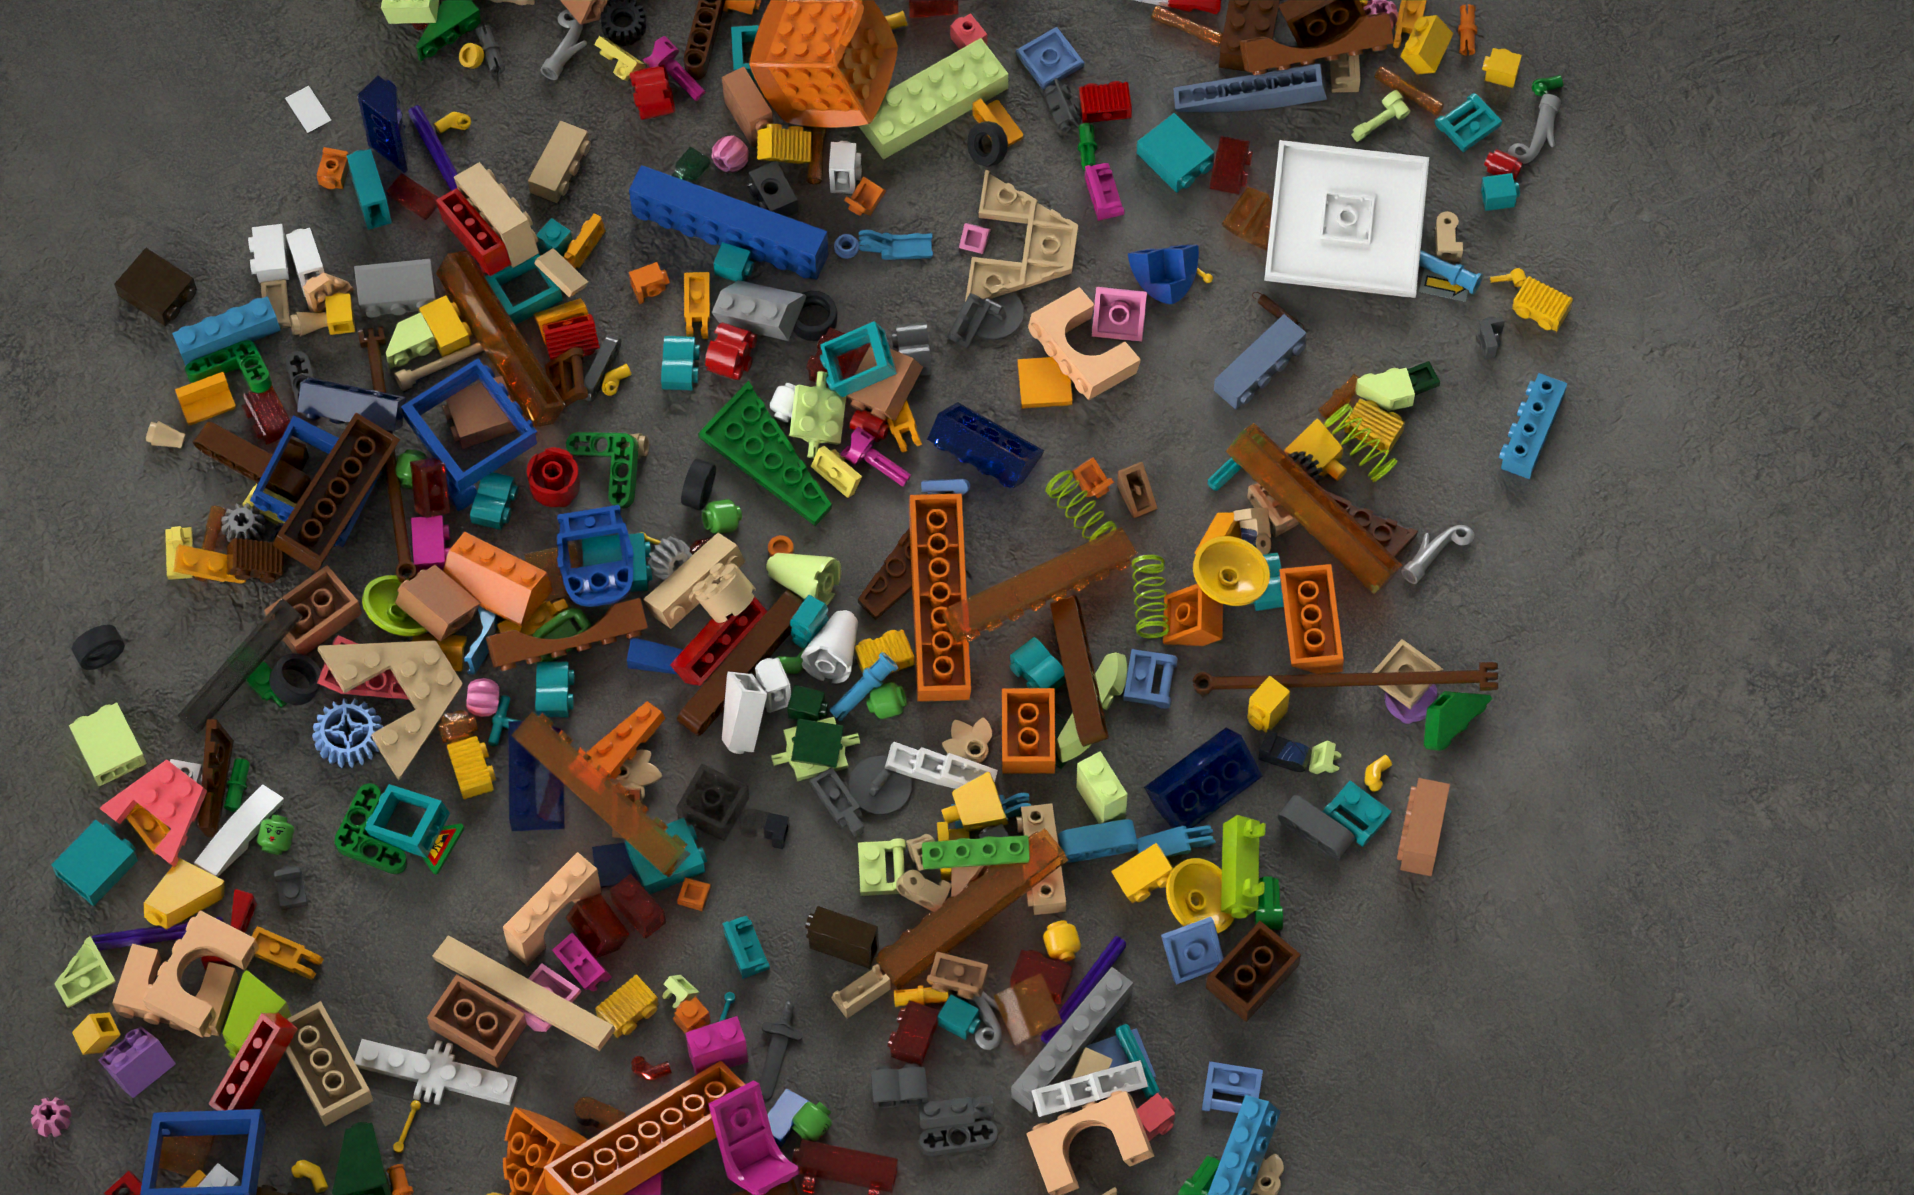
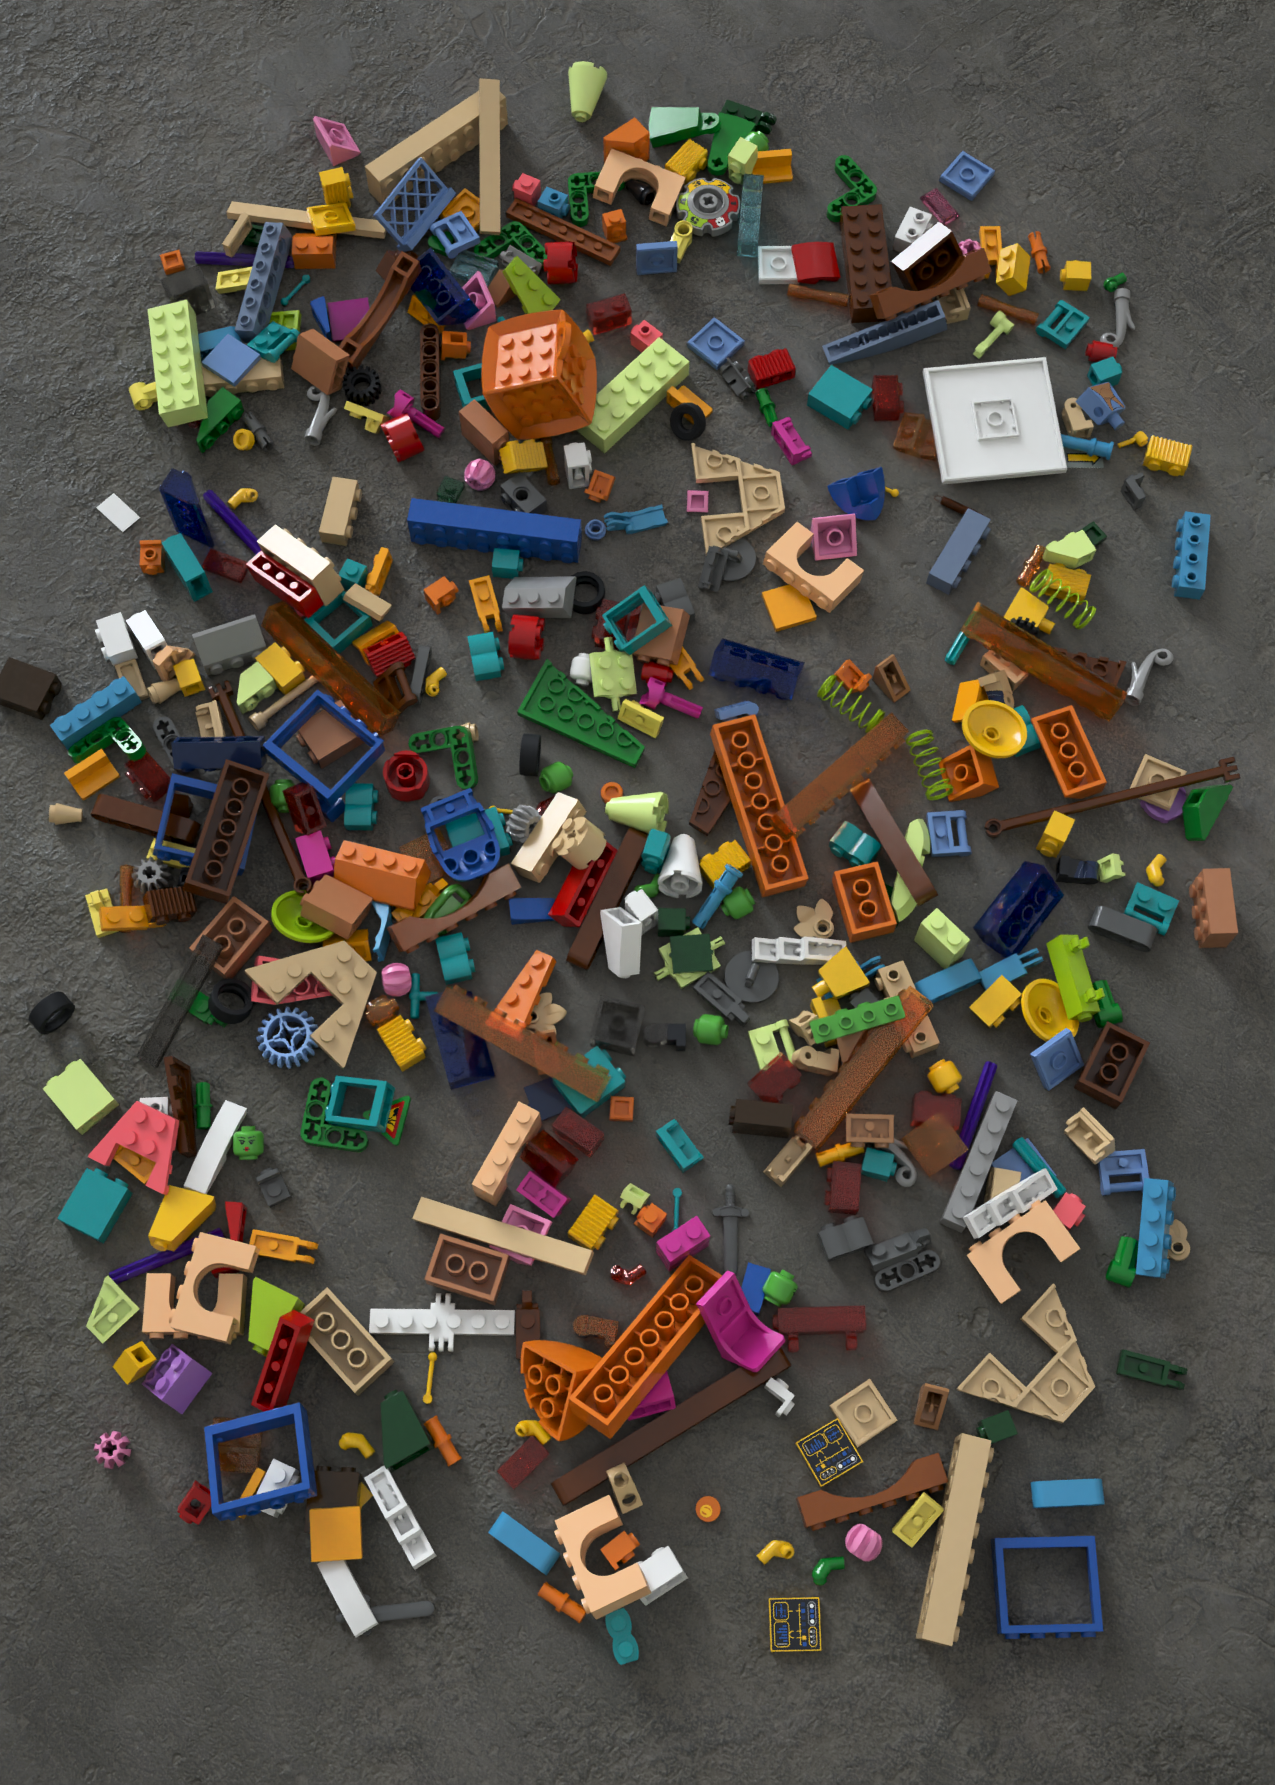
camera: 15 degrees left, 5 degrees up
(351, 366) = (210, 720): none -> tan hinge
(528, 1089) = (526, 1322): none -> reddish brown hinge
(815, 830) = (710, 1029): none -> bright green head
(871, 898) = (775, 1079): none -> clear red brick
(1204, 1041) = (1090, 1136): none -> tan hinge
(1481, 227) = (1102, 405): none -> medium blue torso

